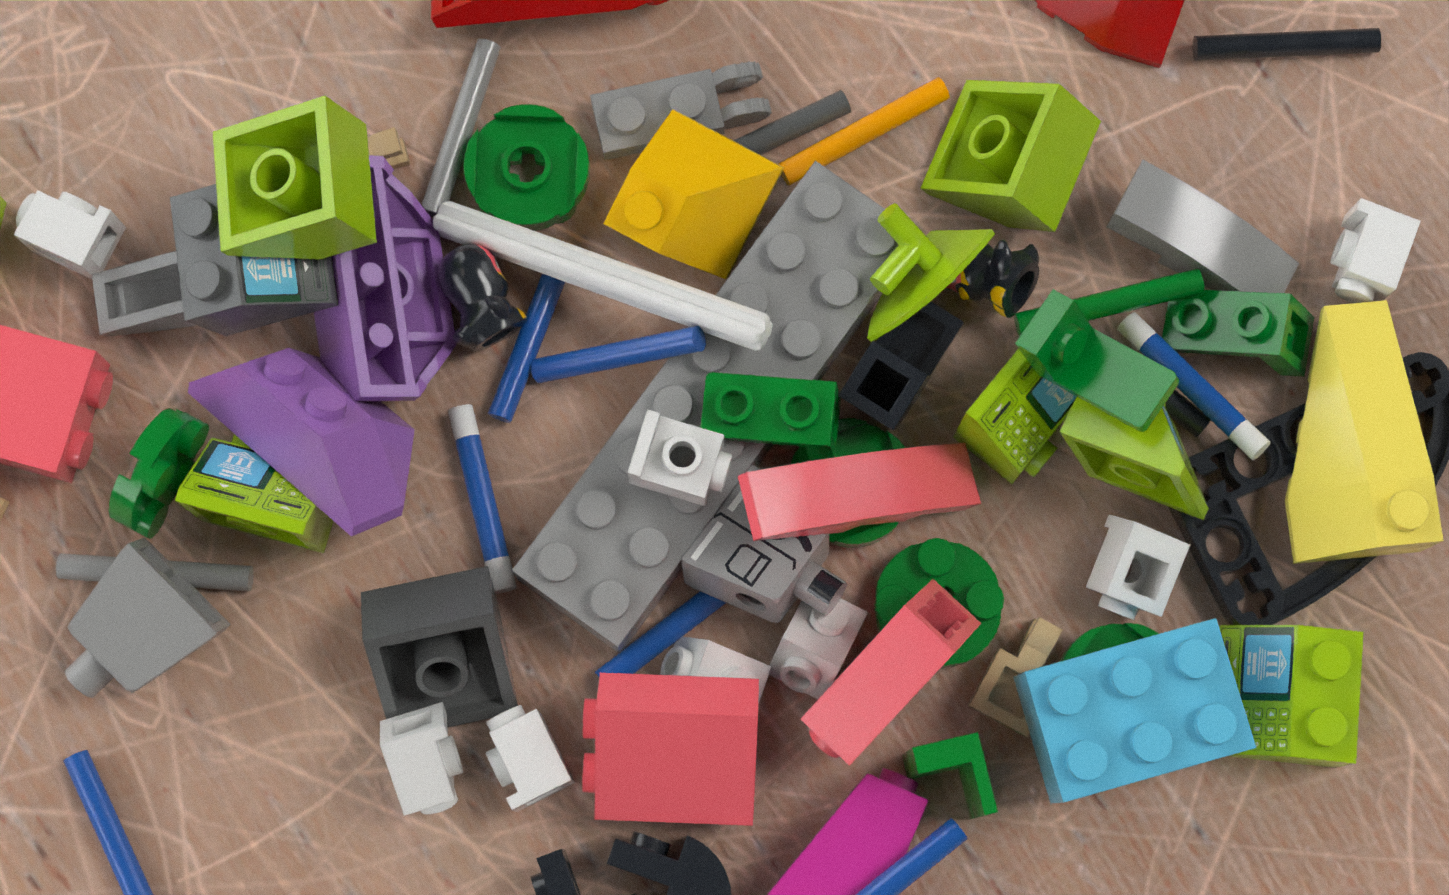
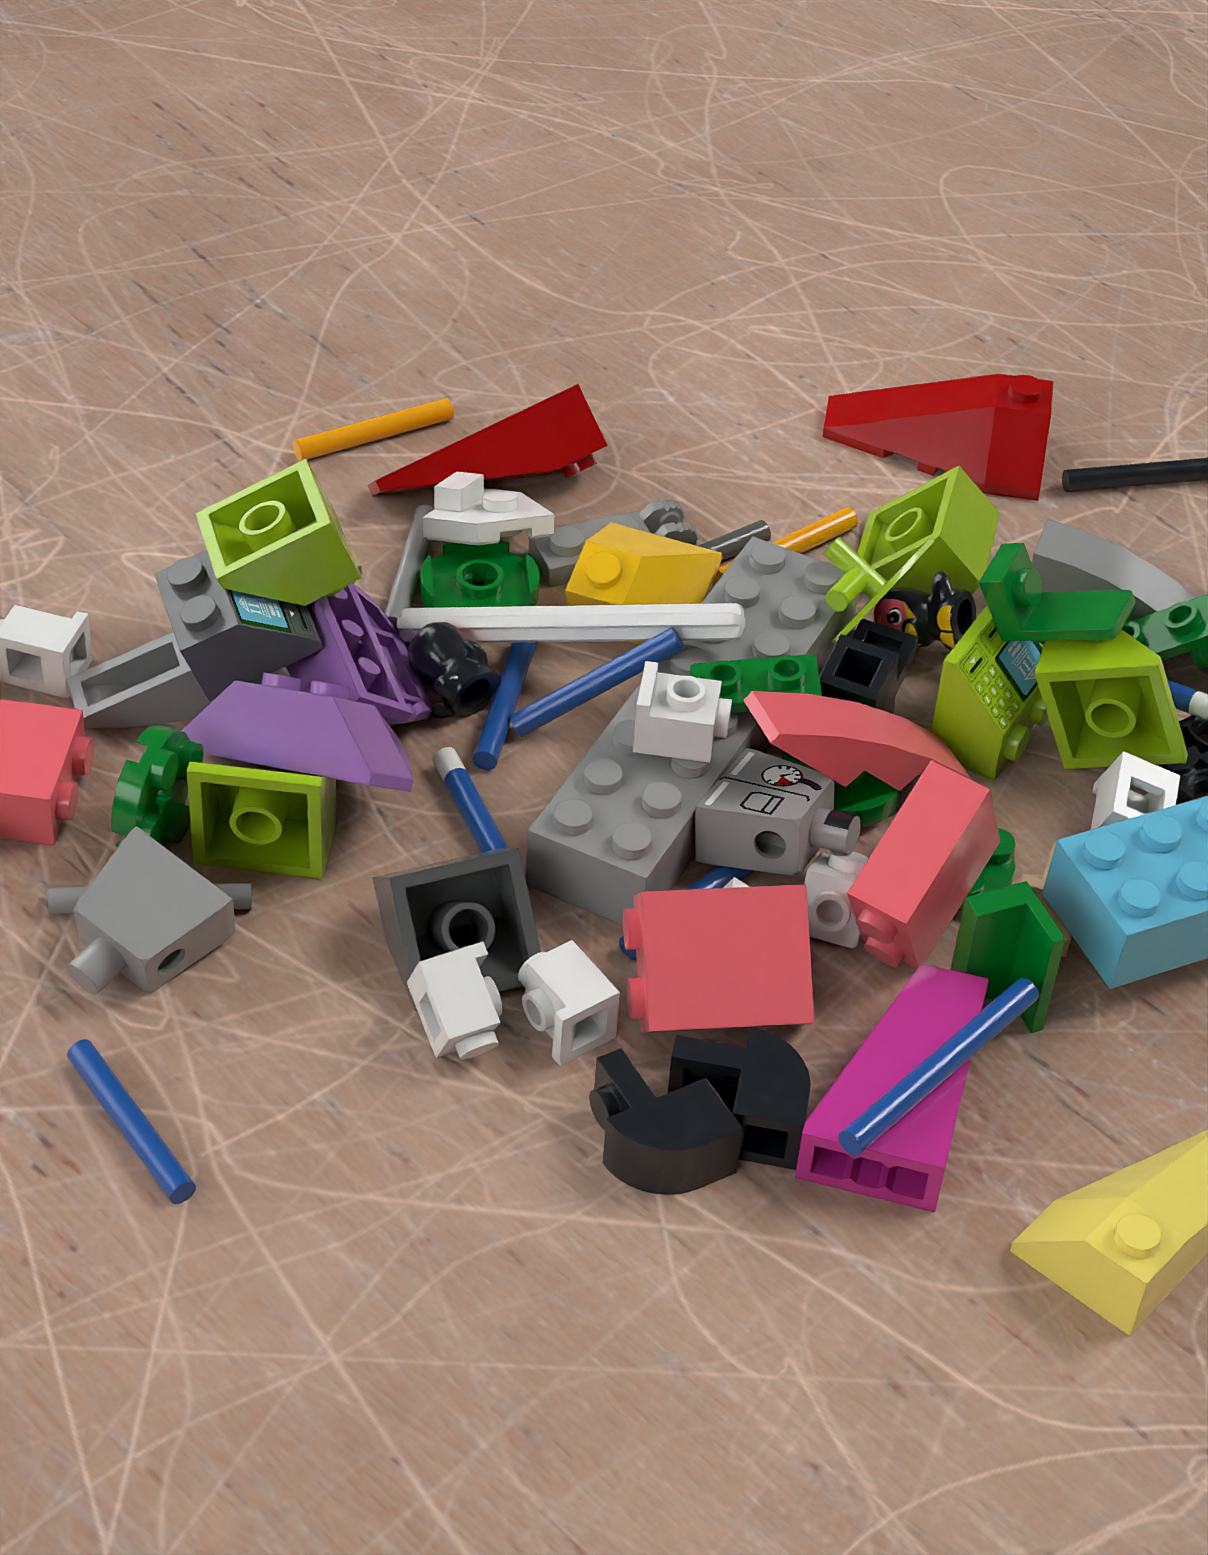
camera: 10 degrees left, 35 degrees down
(541, 74) = (481, 515): none -> white plate

